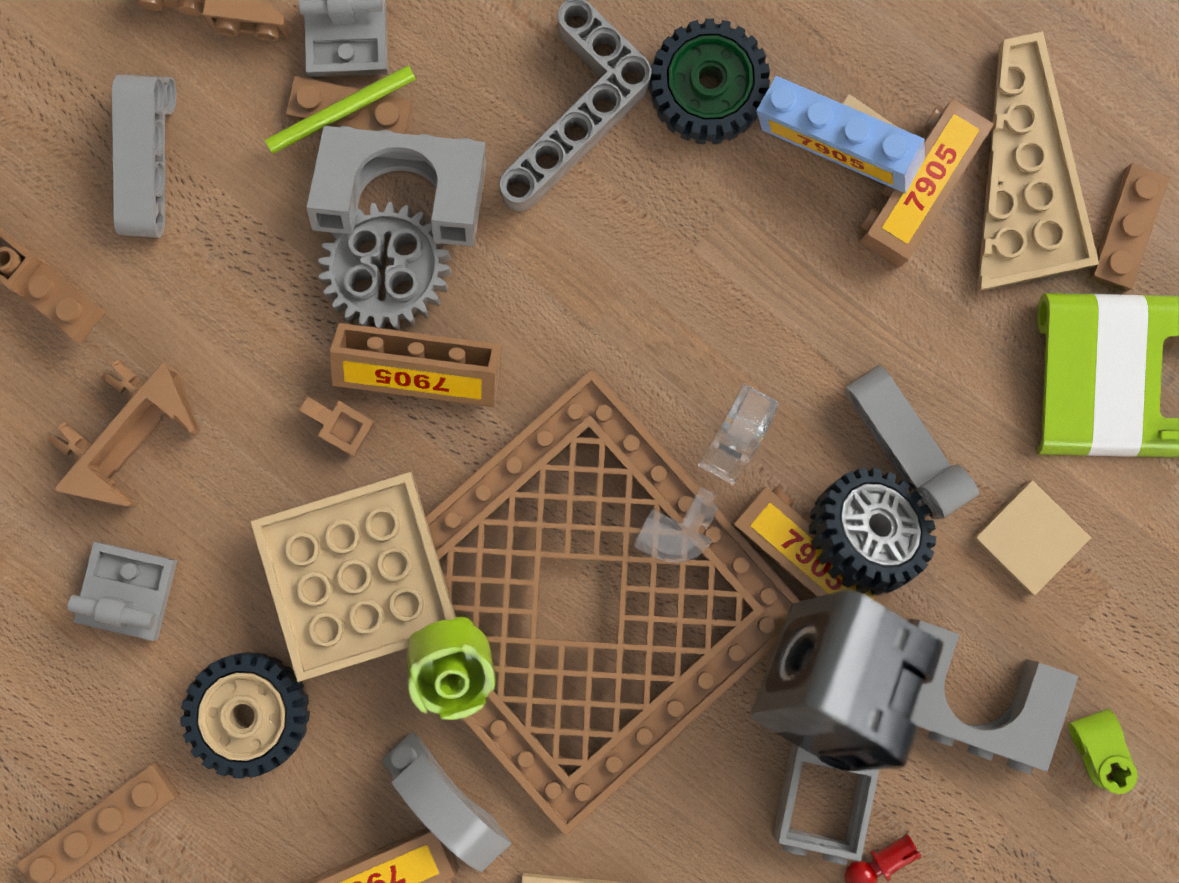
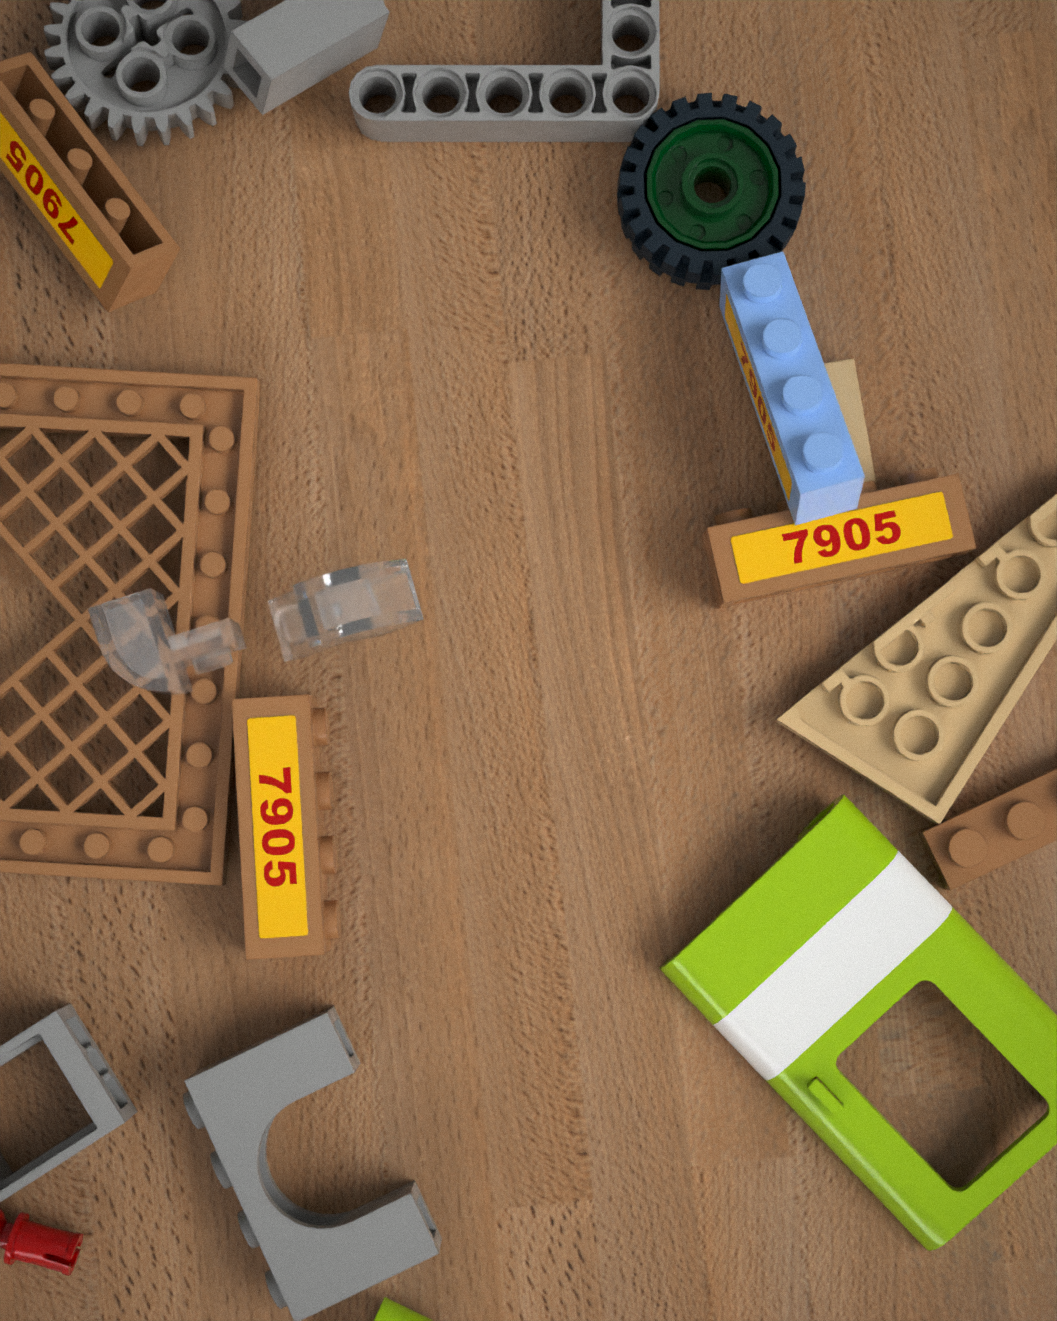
camera: 50 degrees right, 0 degrees up
(847, 681) = (159, 990): piece -> none
(872, 531) = (329, 851): wheel -> none
(909, 444) = (519, 807): light grey beam -> none
(1031, 537) = (555, 1052): tan tile -> none

